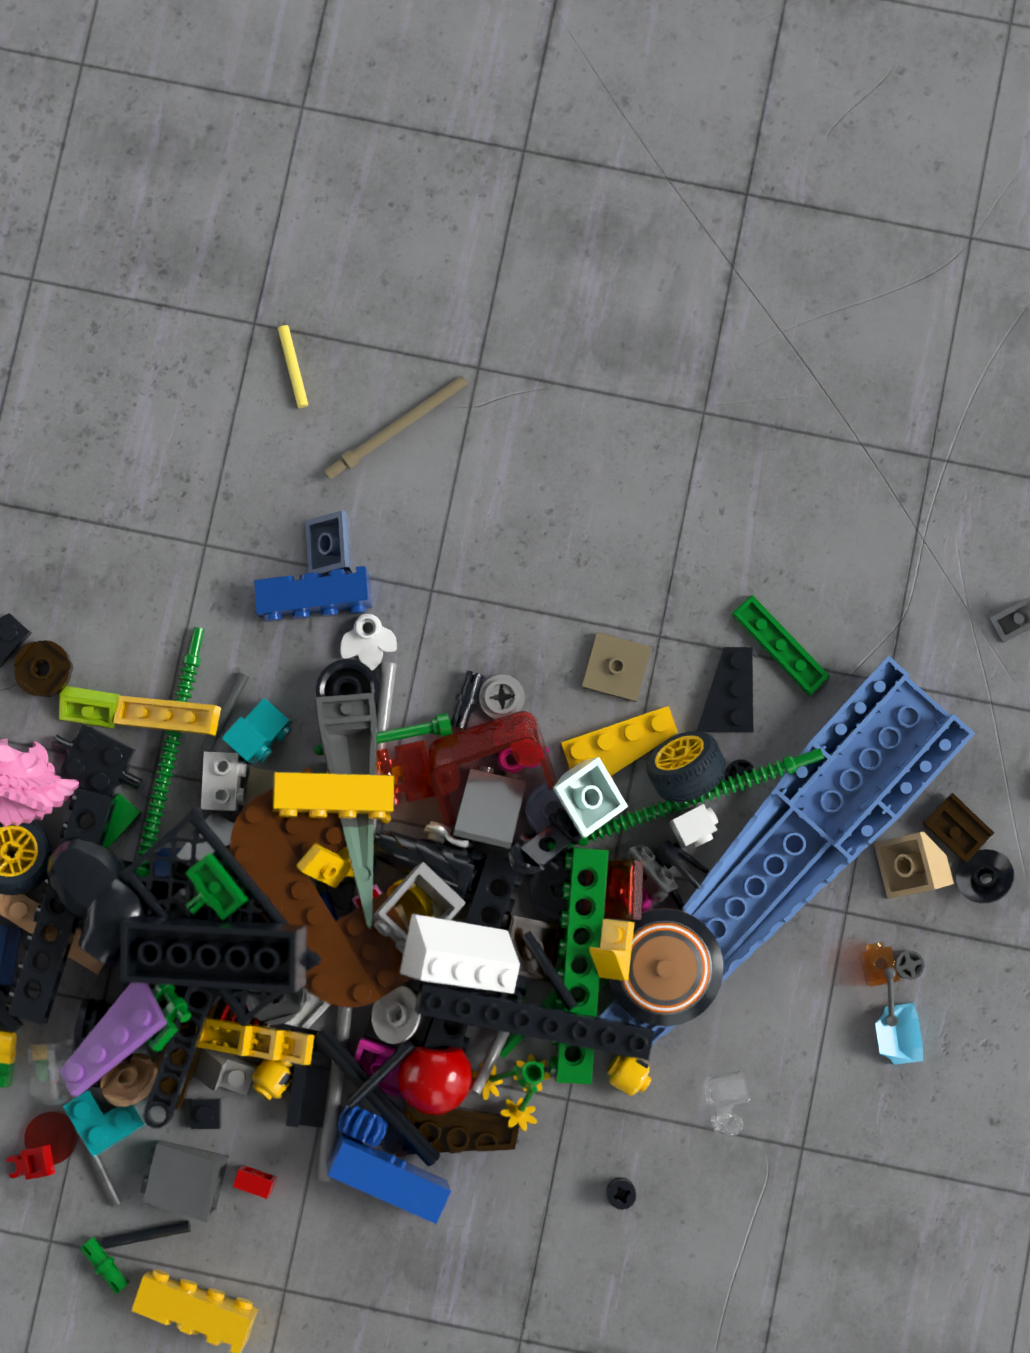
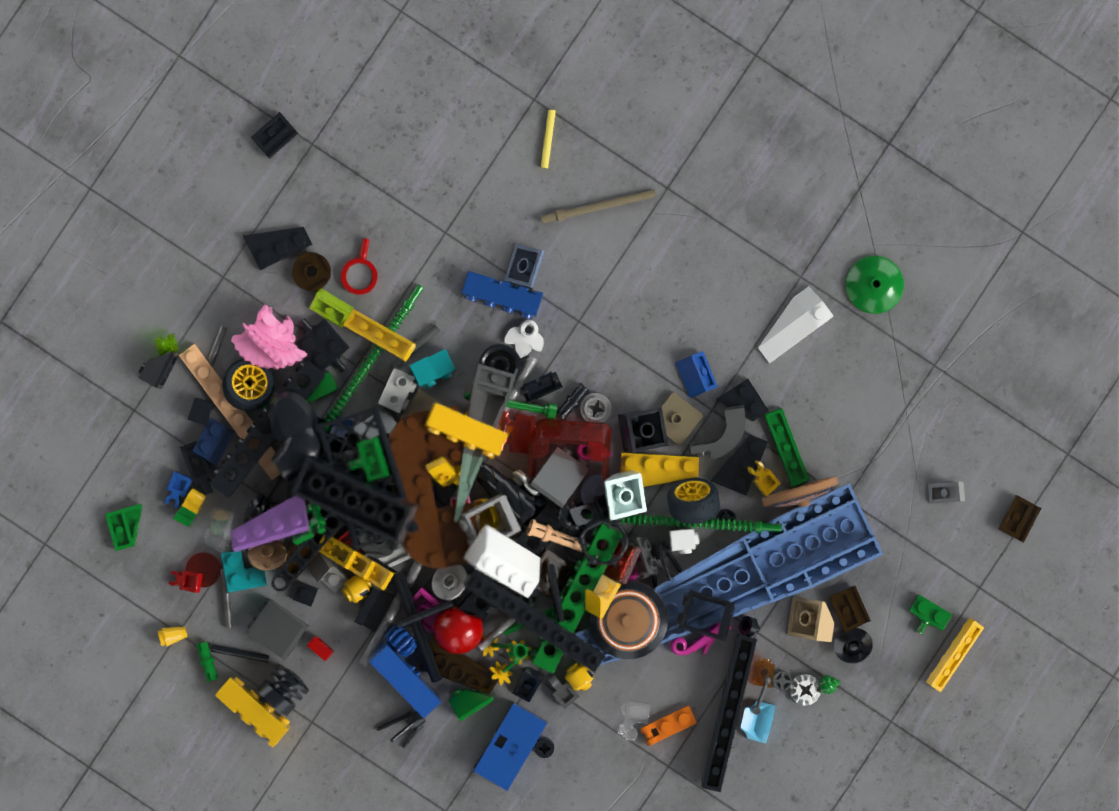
camera: 15 degrees right, 5 degrees up
(40, 1249) = (171, 635): none -> yellow cone
(110, 646) = (359, 274): none -> piece
(222, 1271) = (283, 689): none -> black wheel
(408, 706) = (547, 385): none -> black hinge
(424, 1233) = (414, 720): none -> black plant
(490, 1173) = (468, 702): none -> green slope
(504, 892) = (547, 533): none -> light nougat pin
(562, 854) = (594, 523): none -> black piece
(563, 1113) = (528, 684): none -> black slope
(573, 1211) = (510, 746): none -> blue brick
(577, 699) = (642, 430): none -> black slope
(616, 1104) = (564, 693): none -> dark grey plate
(618, 596) = (696, 374): none -> blue panel
(698, 606) = (745, 395): none -> black wing
(699, 661) = (728, 439): none -> dark grey arch
(724, 470) = (798, 320): none -> white wedge
(735, 908) = (725, 622): none -> black window
(770, 699) = (765, 479): none -> yellow plate
(779, 952) = (695, 645): none -> dark pink plant
(779, 1090) = (669, 725): none -> orange plate
(804, 401) = (861, 289): none -> green dish
(830, 697) = (801, 494): none -> medium nougat dish
(831, 908) = (748, 626): none -> black tile
(855, 1040) = (728, 713): none -> black brick
(934, 971) = (795, 689): none -> white gear
(974, 943) = (828, 684): none -> green plate

